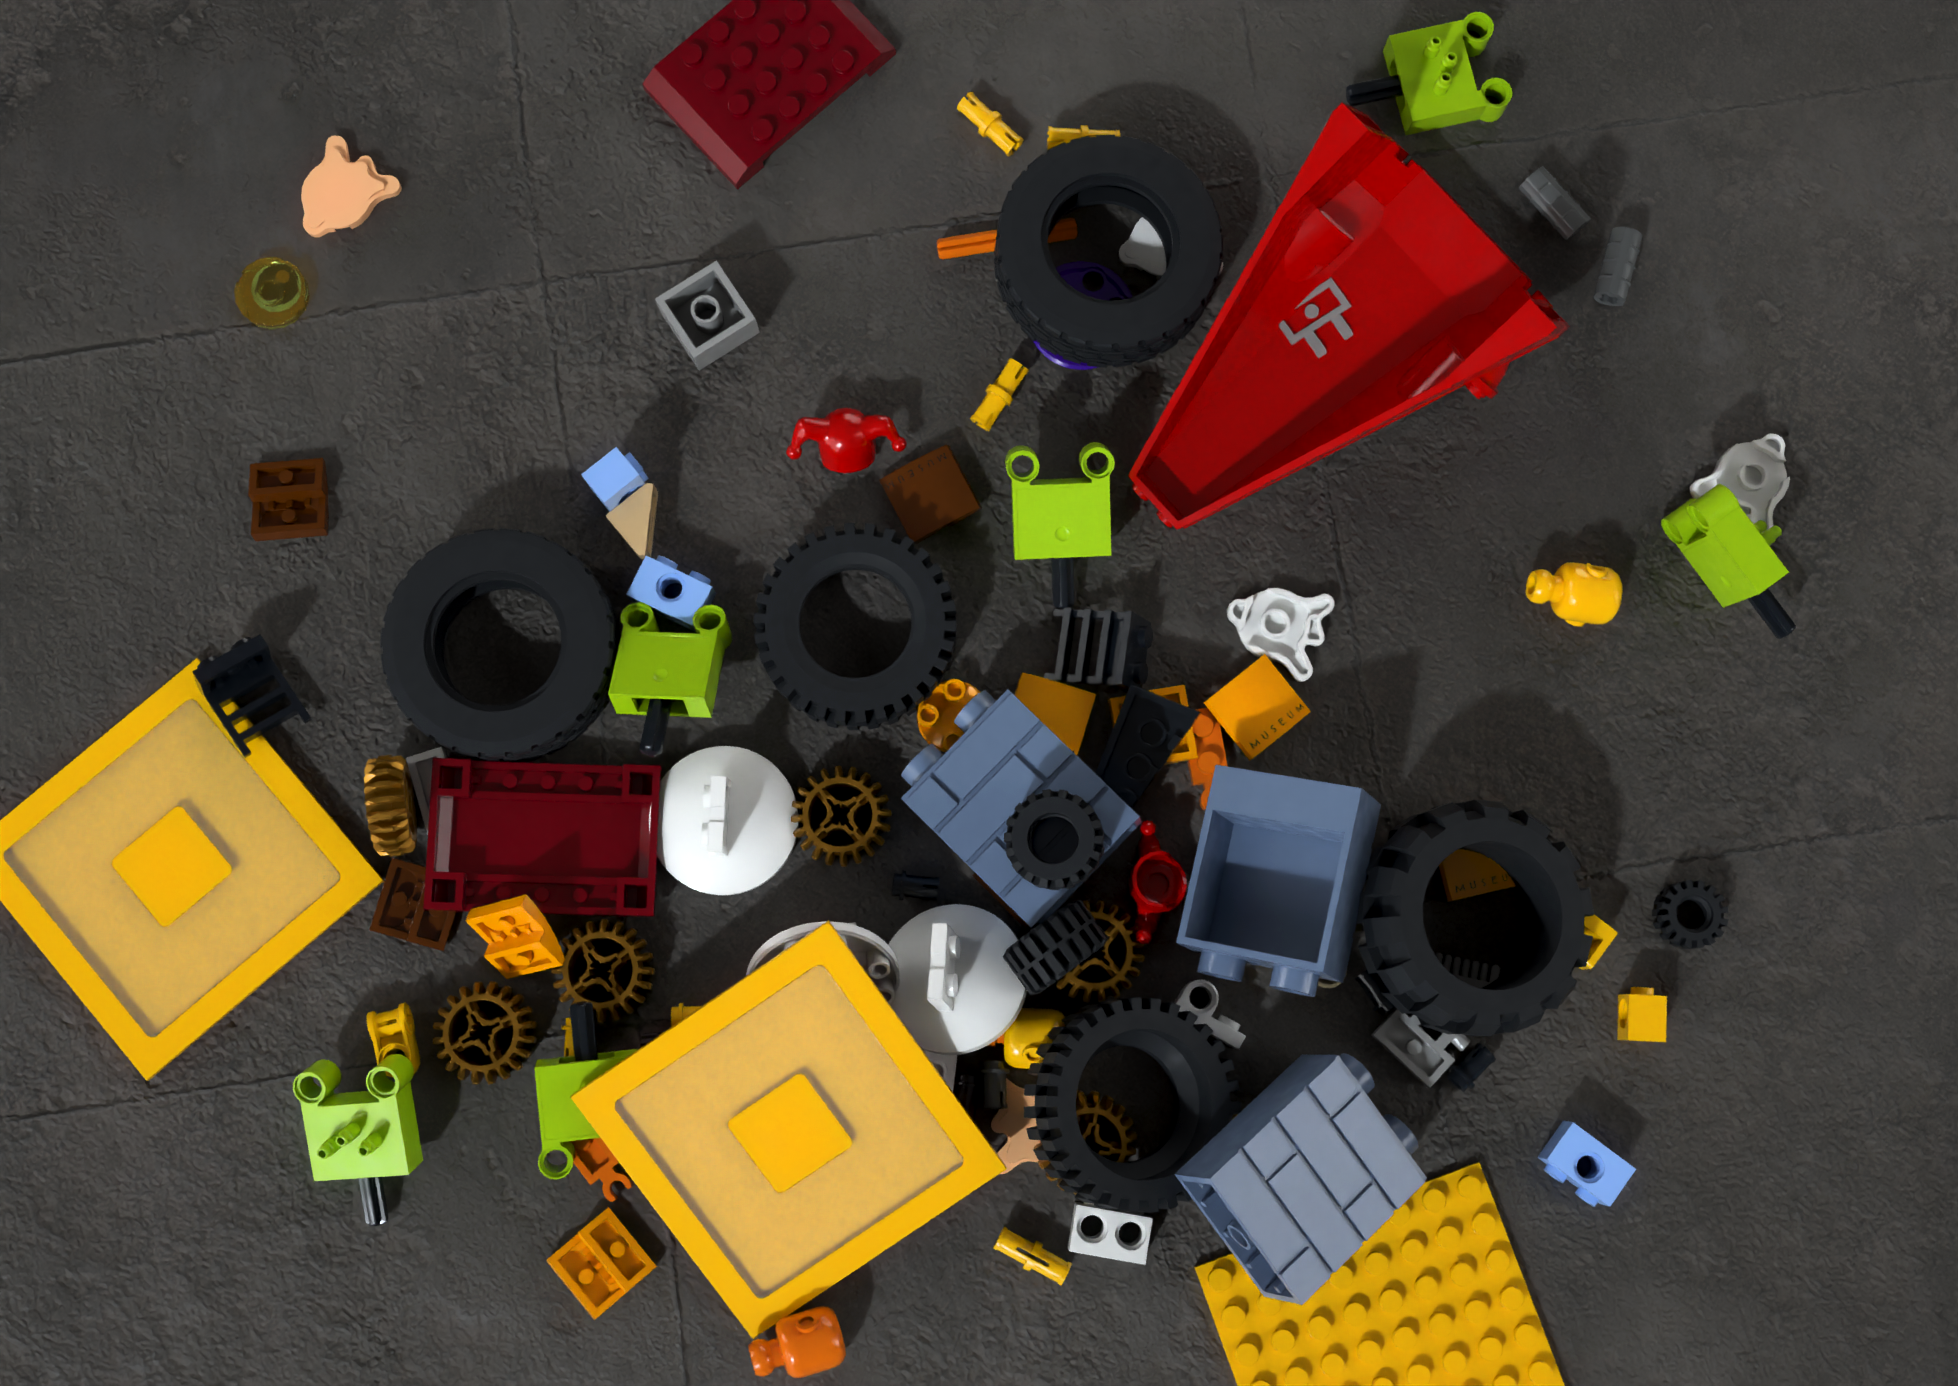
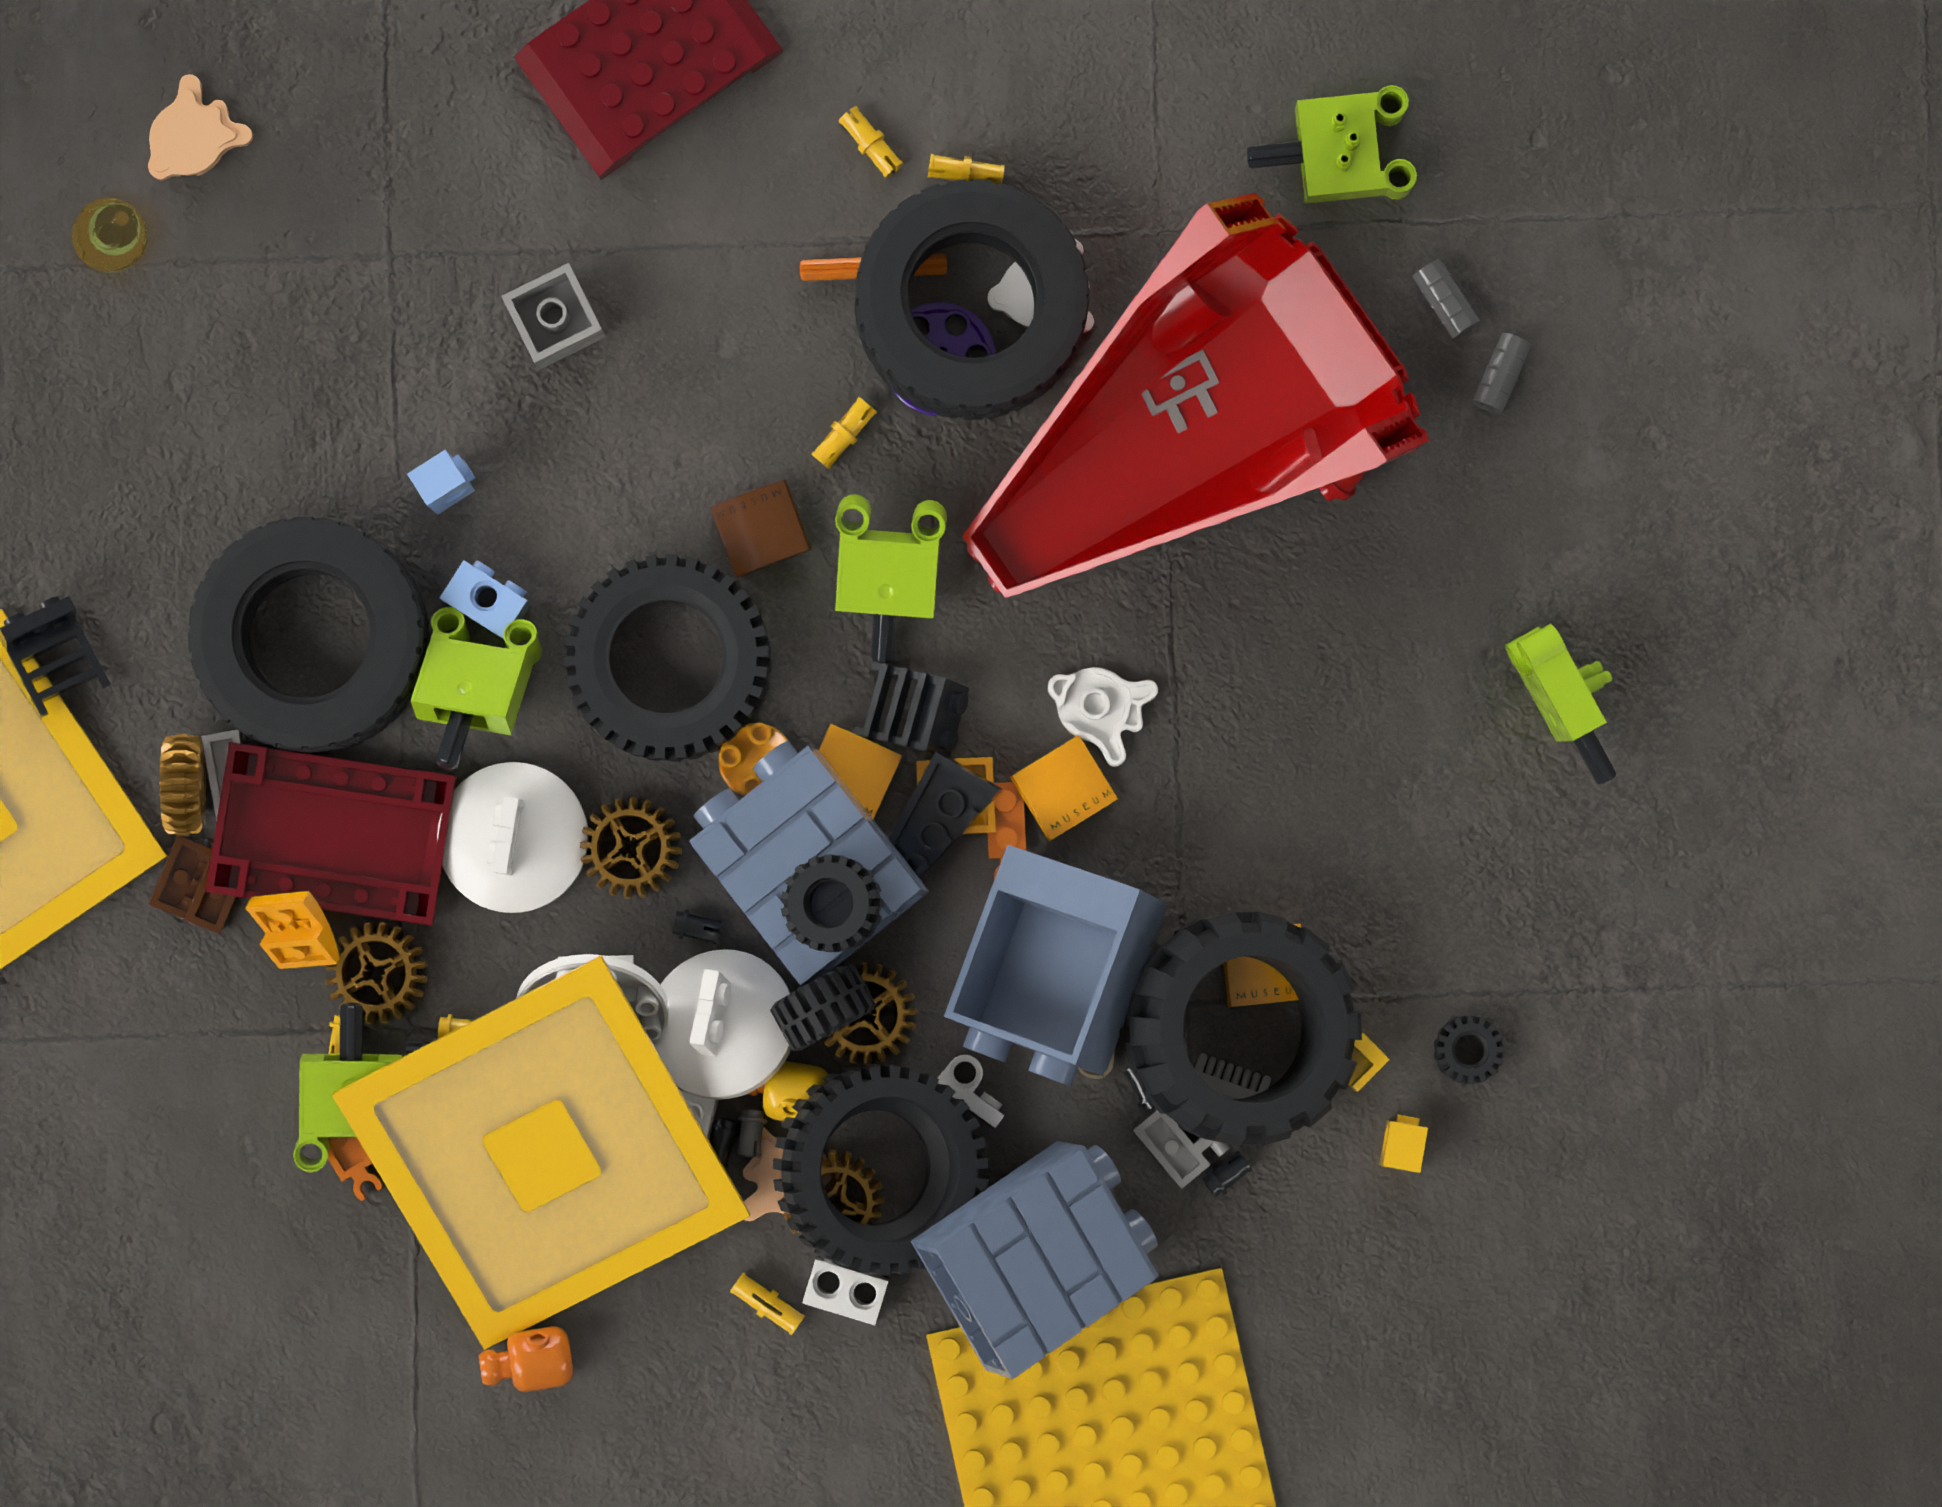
camera: 15 degrees right, 5 degrees up
(289, 499) = (107, 455): reddish brown slope -> none
(361, 1131) = (123, 1102): lime piece -> none
(395, 1036) = (163, 1014): yellow piece -> none
(478, 1017) = (247, 1004): pearl gold gear -> none
(601, 1263) = (344, 1259): light orange slope -> none
(636, 519) = (458, 520): tan slope -> none
(845, 438) = (680, 461): red piece -> none
(1155, 883) = (934, 953): red piece -> none
(1578, 592) = (1405, 710): yellow piece -> none
(1607, 1173) = (1346, 1290): light blue brick -> none
(1753, 474) = (1603, 614): white tile -> none

